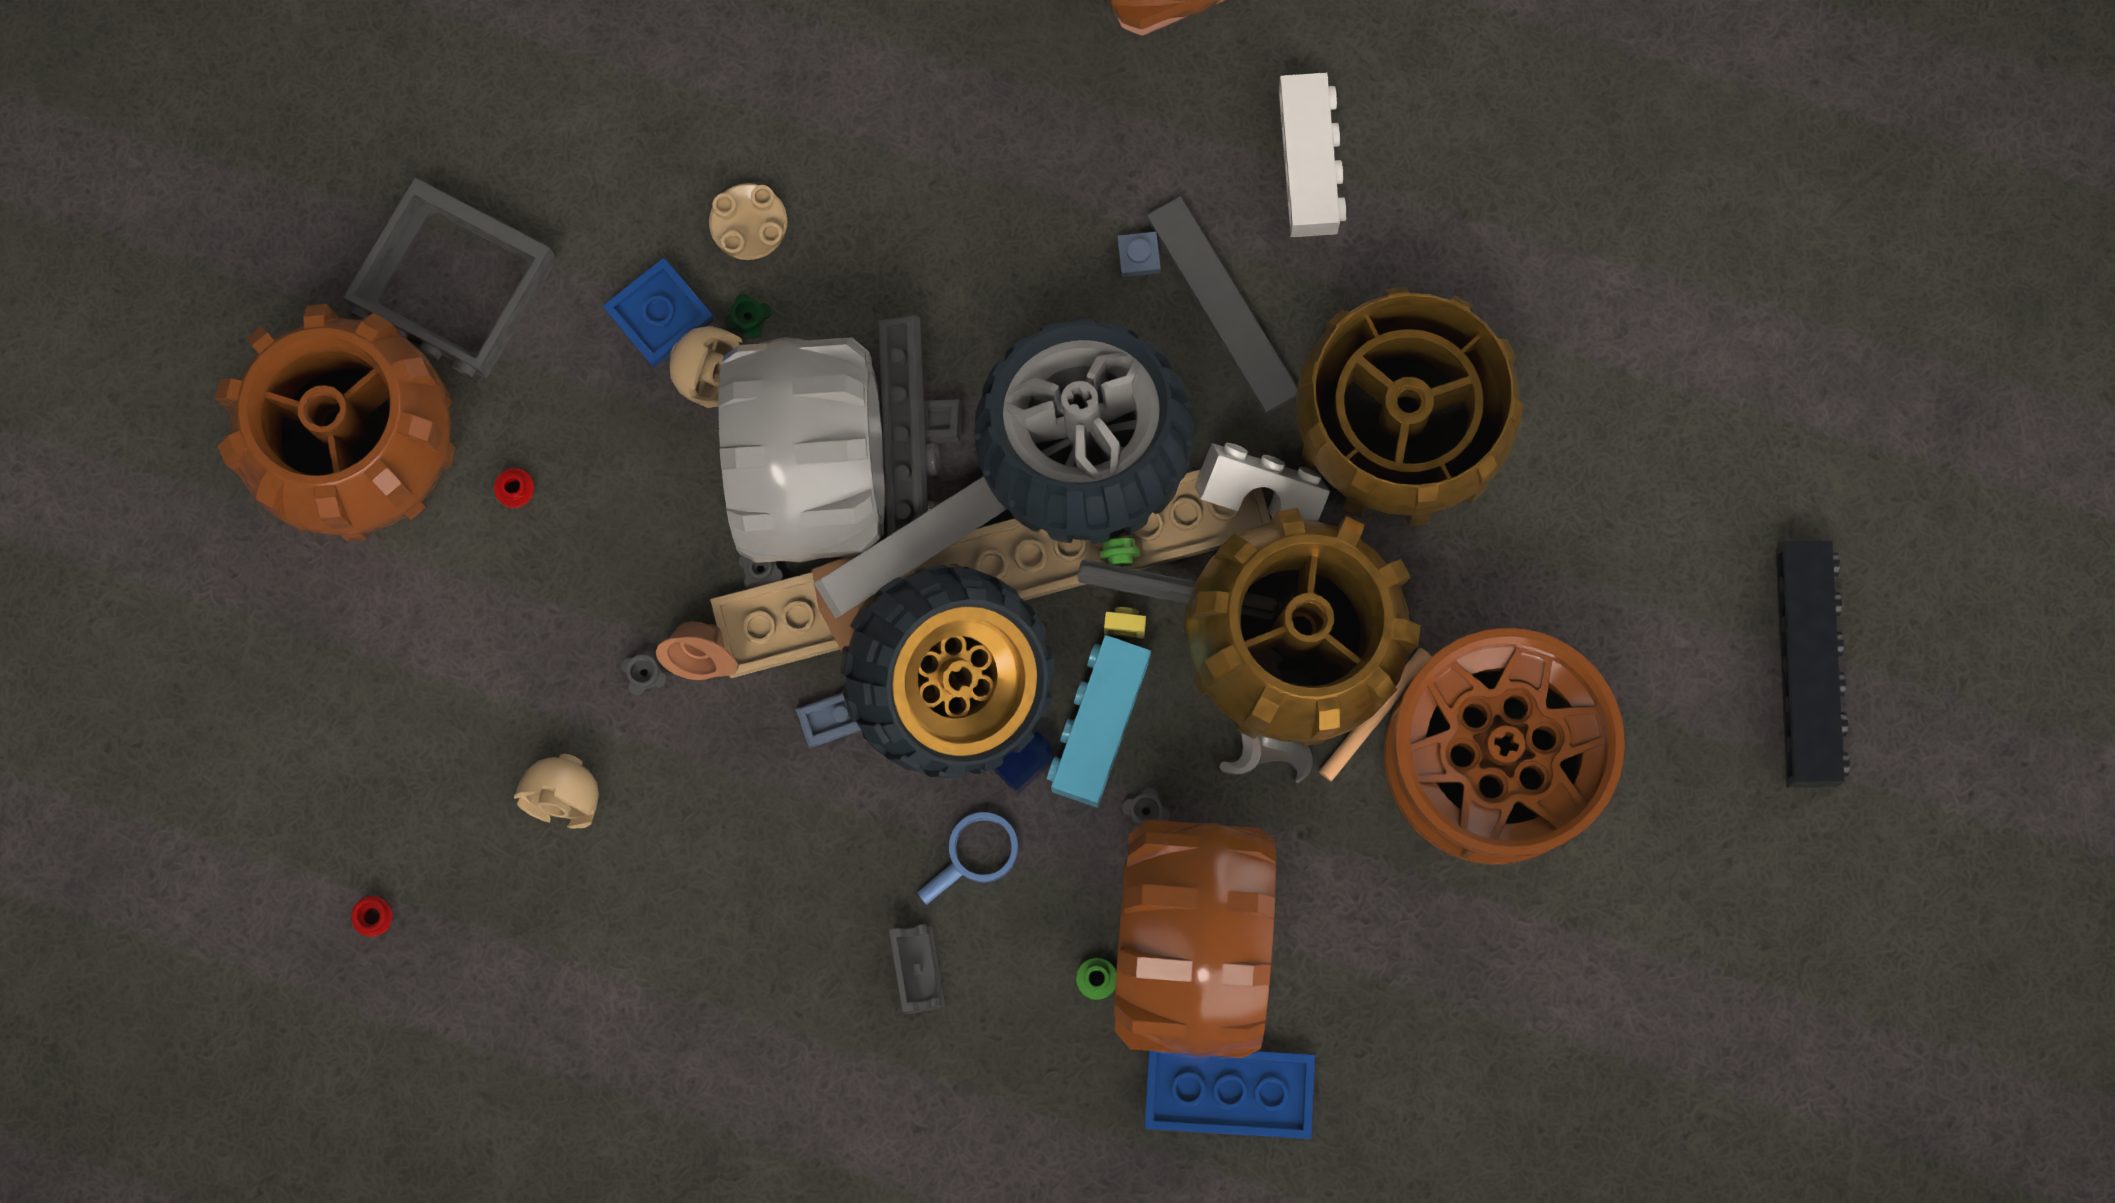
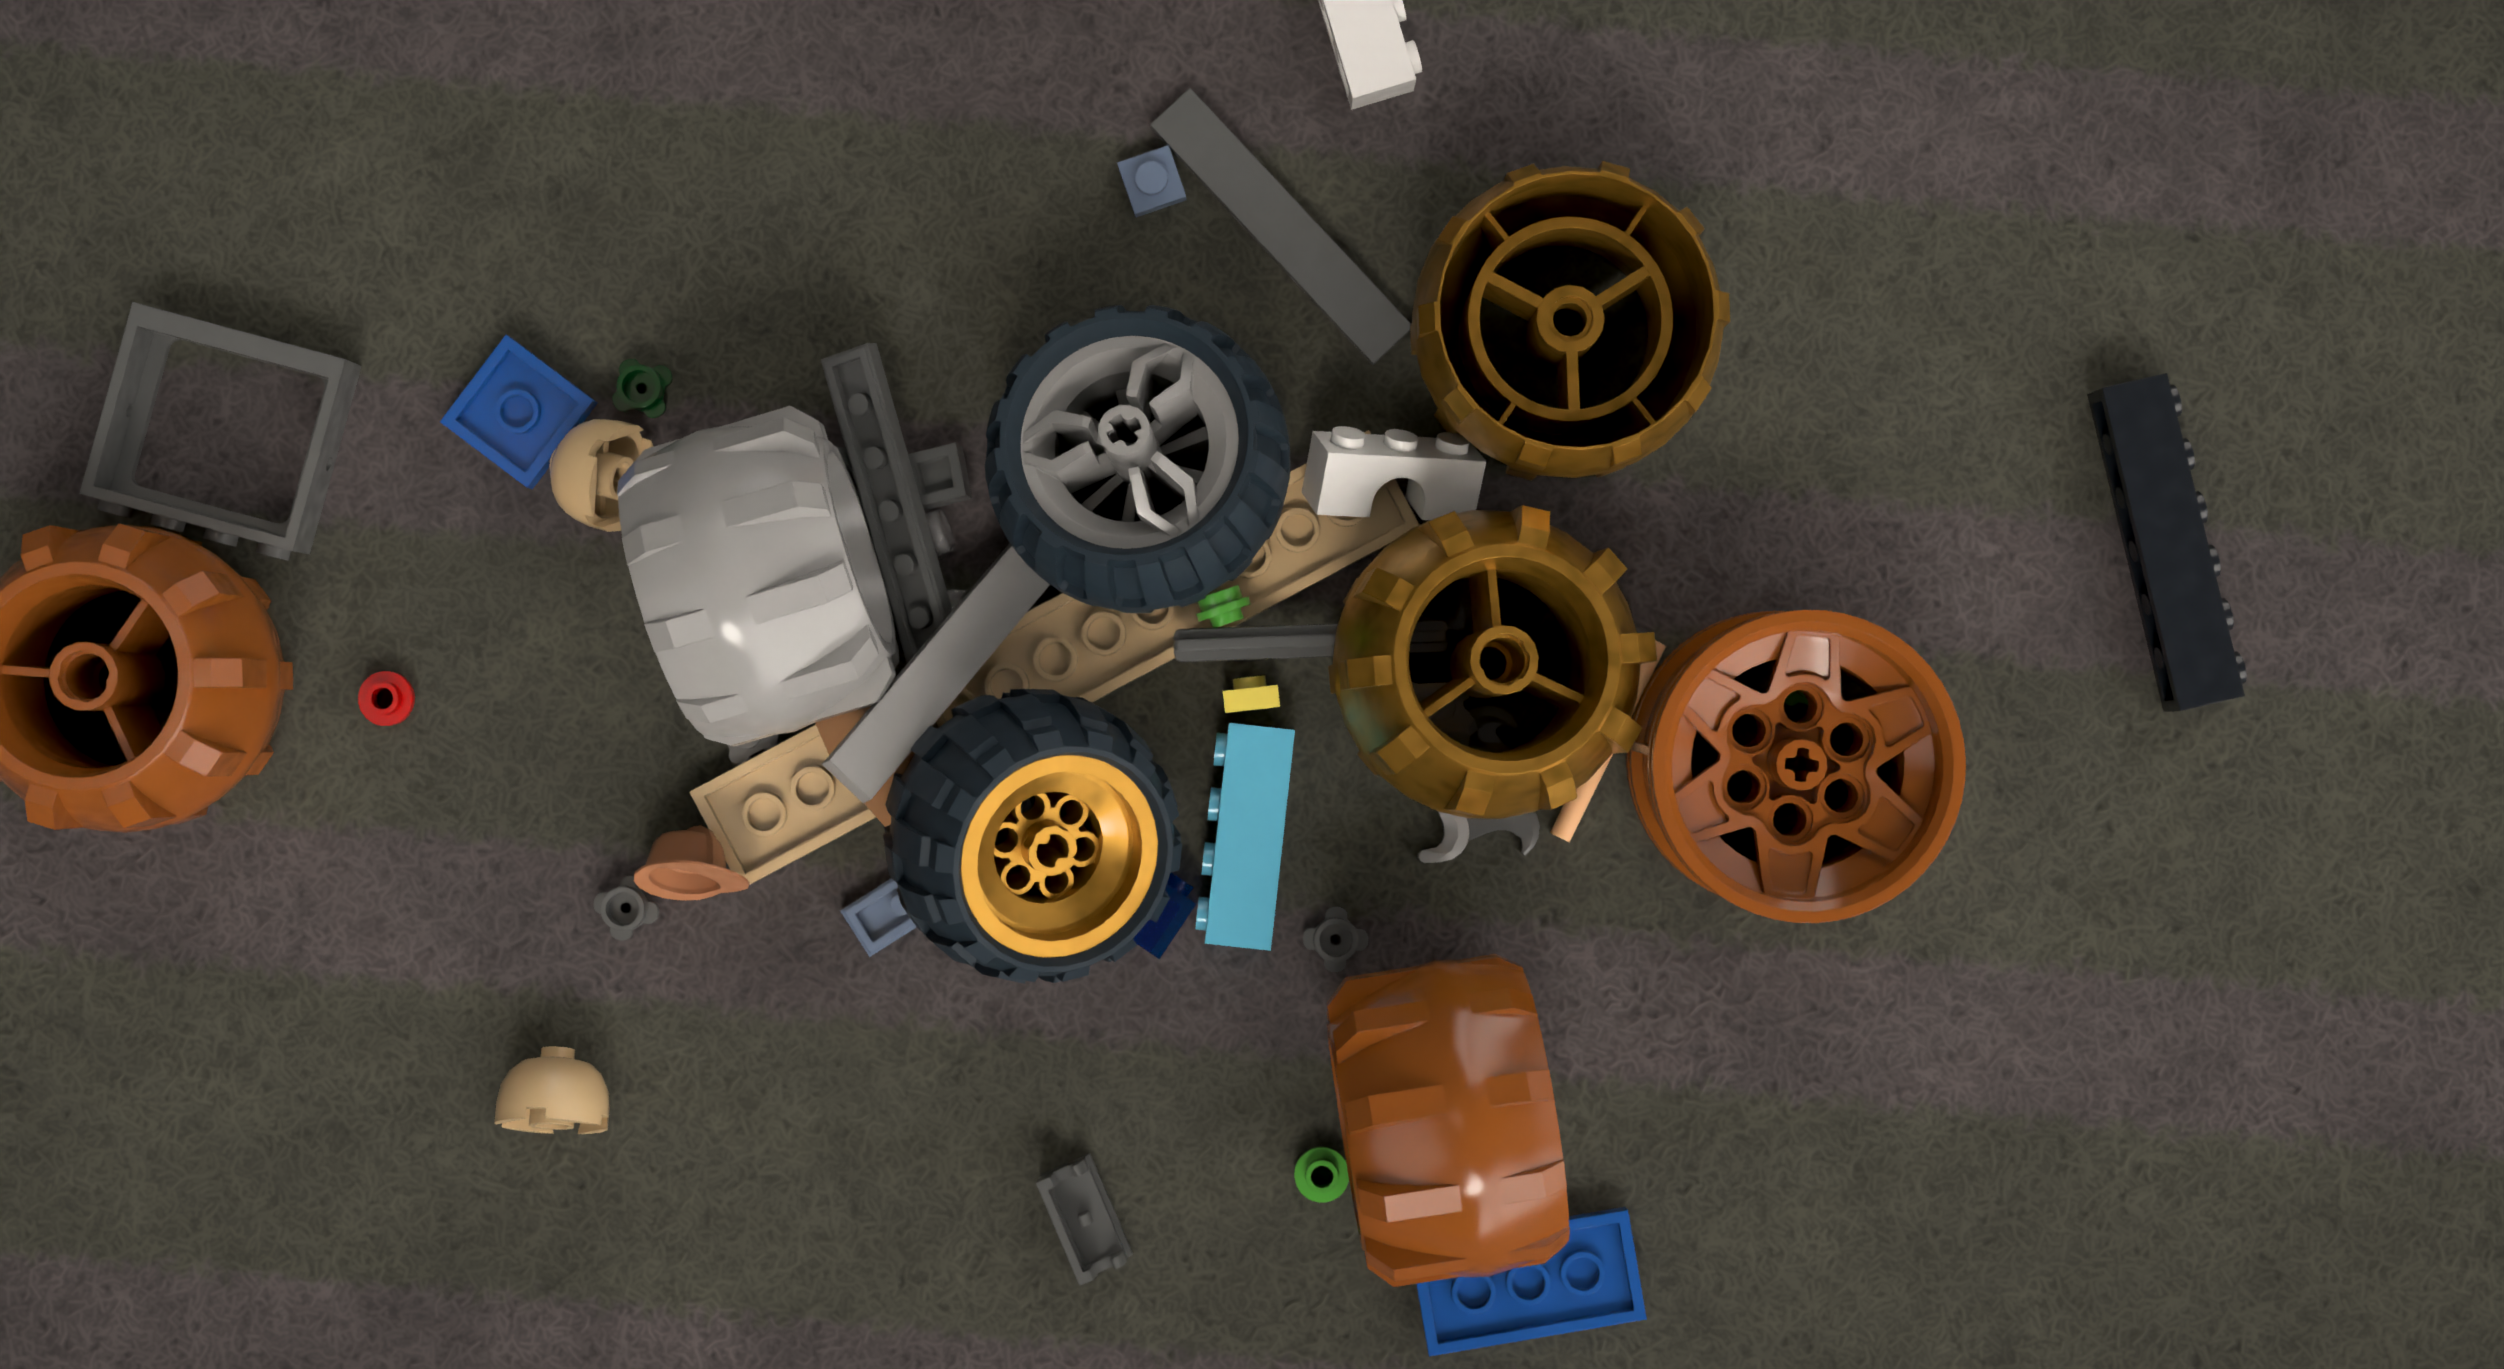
camera: 15 degrees left, 10 degrees up
(360, 911) = (338, 1325): red plate -> none
(748, 221) = (608, 255): tan dish -> none
(956, 870) = (1105, 1073): medium blue piece -> none

